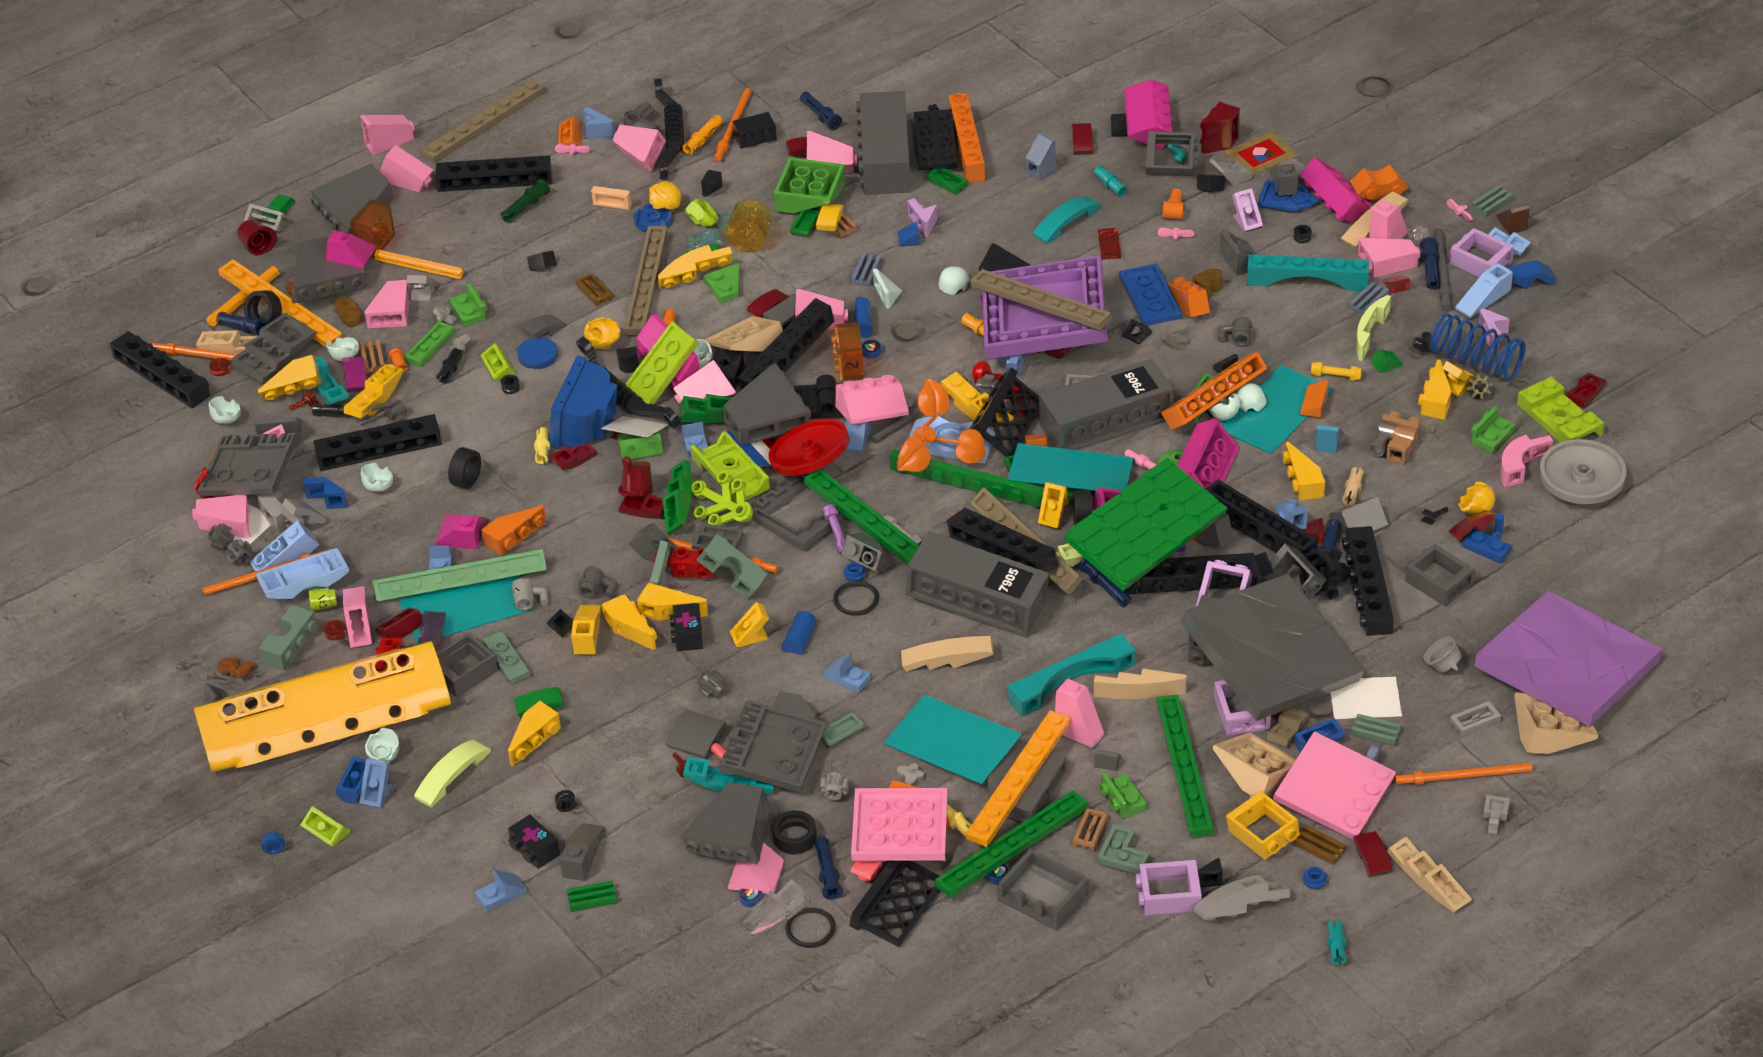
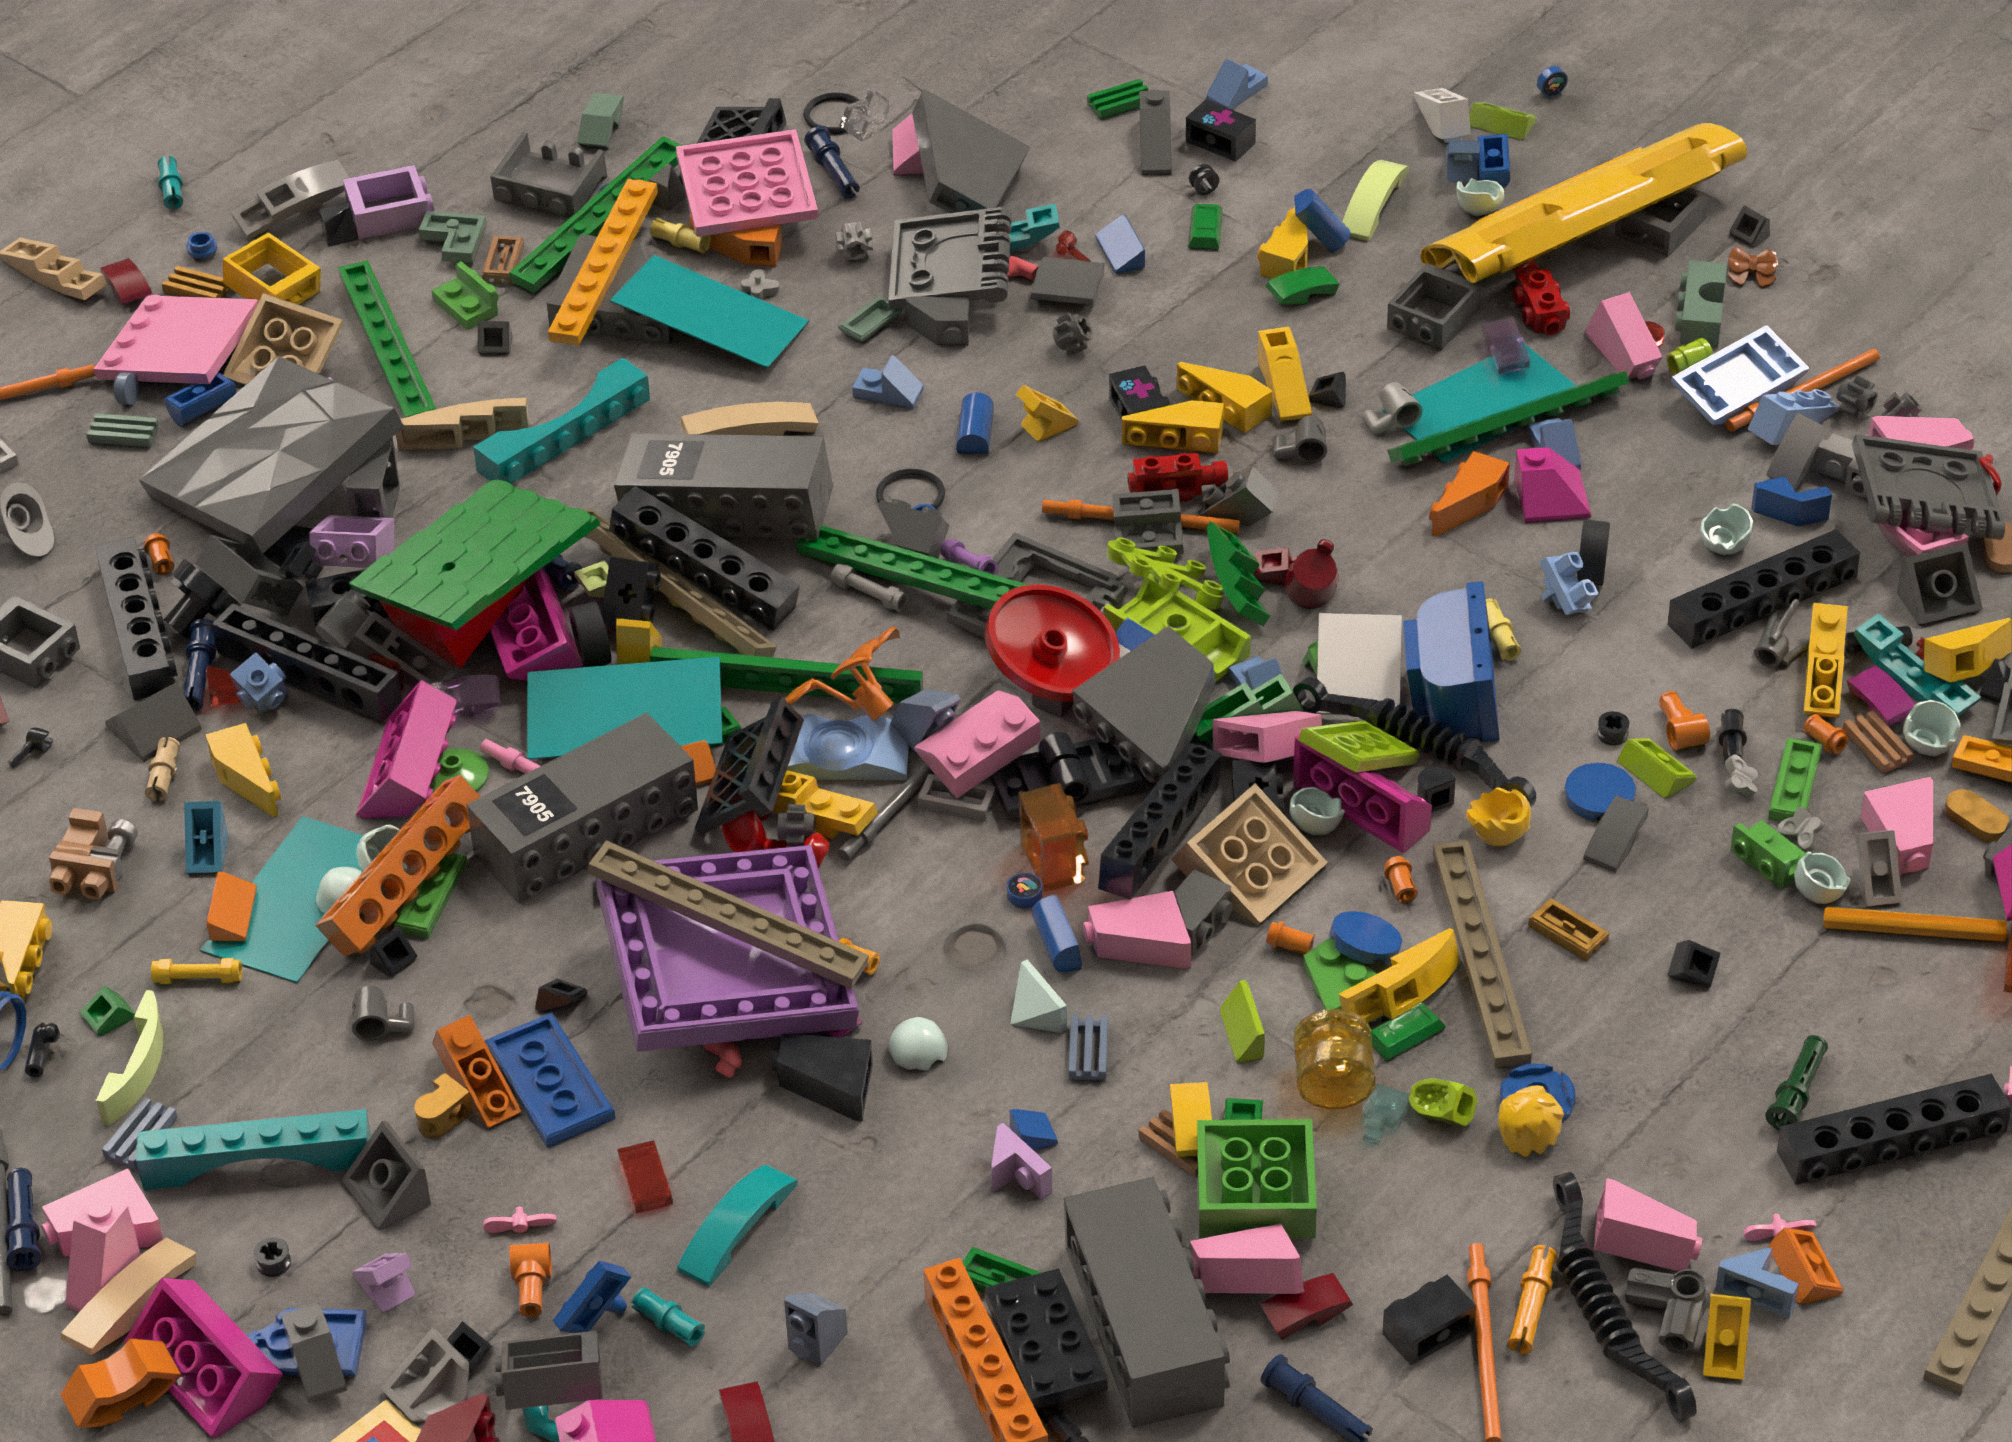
camera: 165 degrees right, 0 degrees up
(366, 829) = (1445, 113): none -> white slope
(400, 624) = (1561, 354): dark red slope -> none
(453, 284) = (1820, 878): none -> light aqua hair
(471, 374) = (1683, 726): none -> orange pin
(491, 454) = (1564, 586): none -> light blue hips
(504, 732) = (1321, 220): none -> blue brick
(508, 659) = (1381, 336): sand green plate -> none
(581, 770) = (1205, 226): none -> green tile
(611, 197) = (1634, 1109): light nougat tile -> none
(622, 105) = (1726, 1336): none -> yellow slope
(647, 758) = (1121, 246): none -> slope
(660, 563) = (1208, 444): sand green tile -> none
(702, 290) = (1365, 937): none -> blue tile
(703, 238) = (1414, 1062): clear light blue plate -> none
(711, 182) = (1456, 1173): black slope -> none
(740, 300) = (1289, 938): none -> orange pin
(746, 573) = (1122, 454): sand green arch -> none
(766, 302) = (1238, 940): dark red slope -> none
(784, 264) = (1243, 1024): none -> lime slope
(791, 819) = (888, 177): black tyre -> none
(894, 424) = (924, 715): none -> sand blue slope
(991, 940) = (598, 120): none -> sand green slope
(1050, 527) = (628, 575): none -> black brick
(1076, 702) = (544, 350): bright pink slope -> none
(1144, 177) = (593, 1297): none -> blue plate
(1235, 535) = (344, 620): none -> dark grey slope
(1353, 631) = (157, 548): none -> orange pin
(1367, 697) = (116, 478): white sticker -> none
(1397, 284) = (84, 1167): clear red slope -> none

